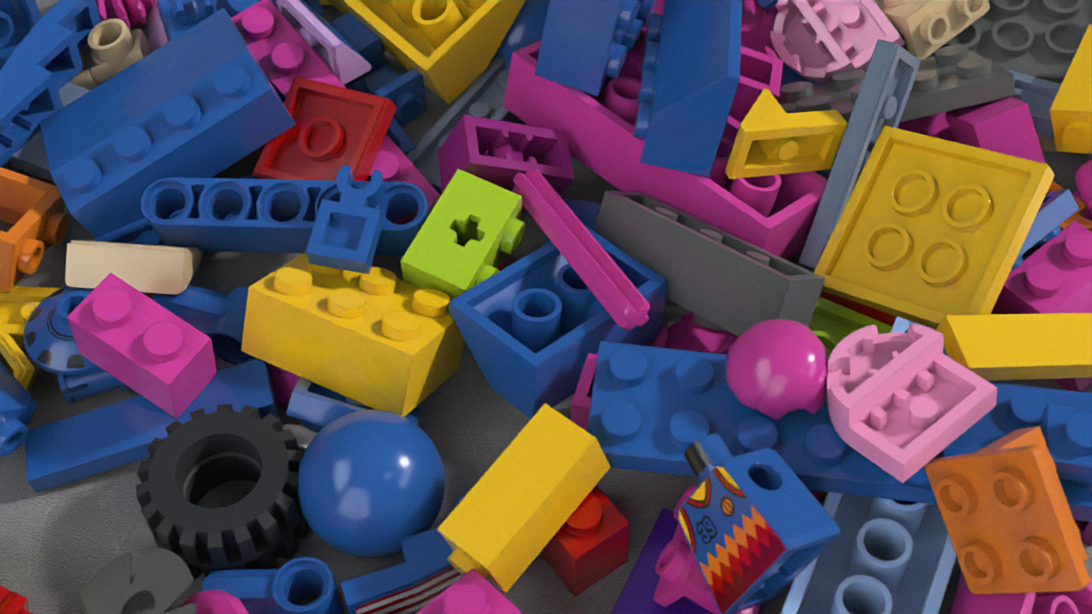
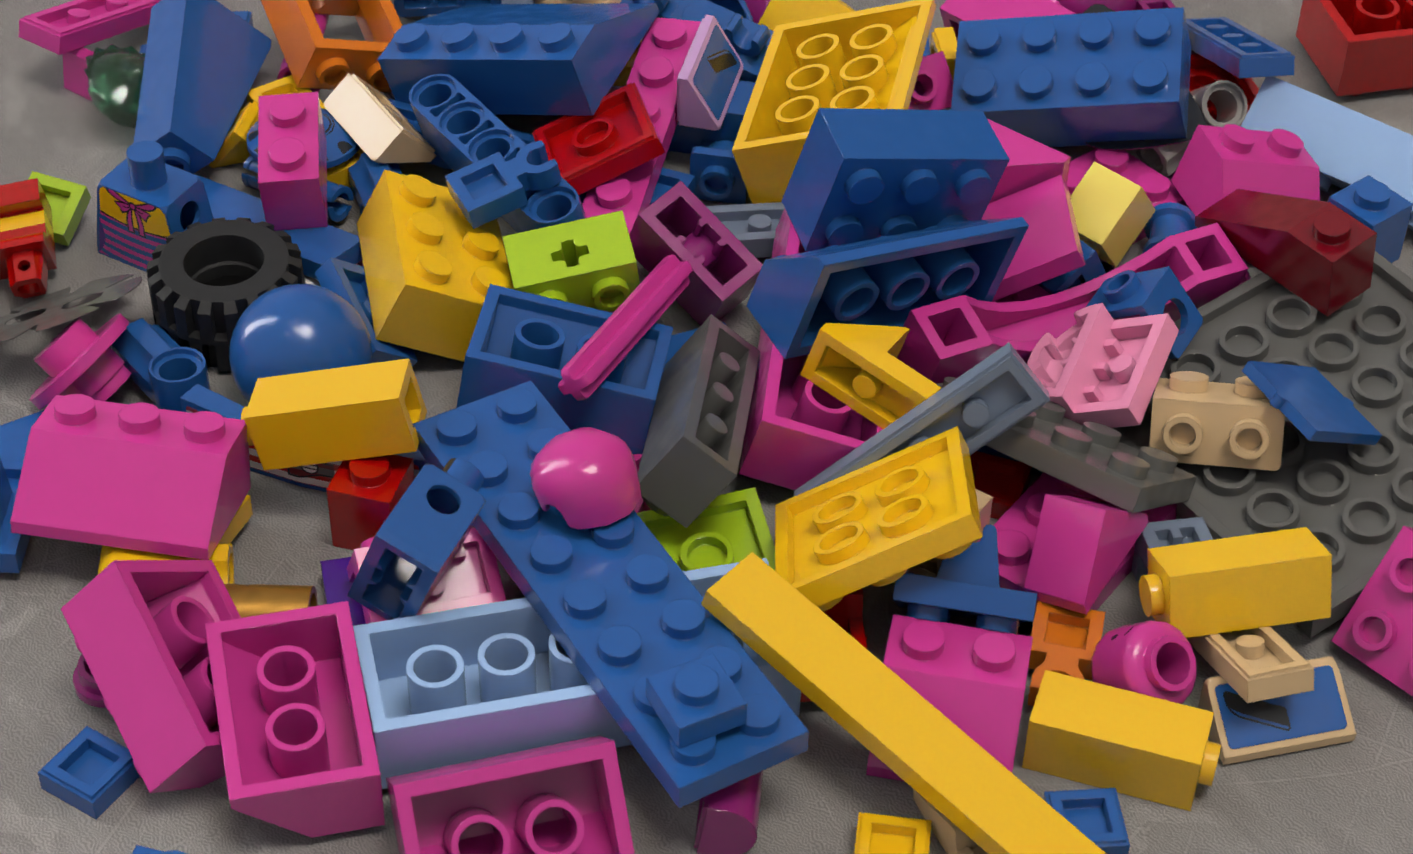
camera: 50 degrees right, 10 degrees down
(73, 491) = (146, 203): none -> blue torso
(902, 397) = (620, 554): bright pink slope -> none
(1010, 517) = (586, 690): orange bracket -> none

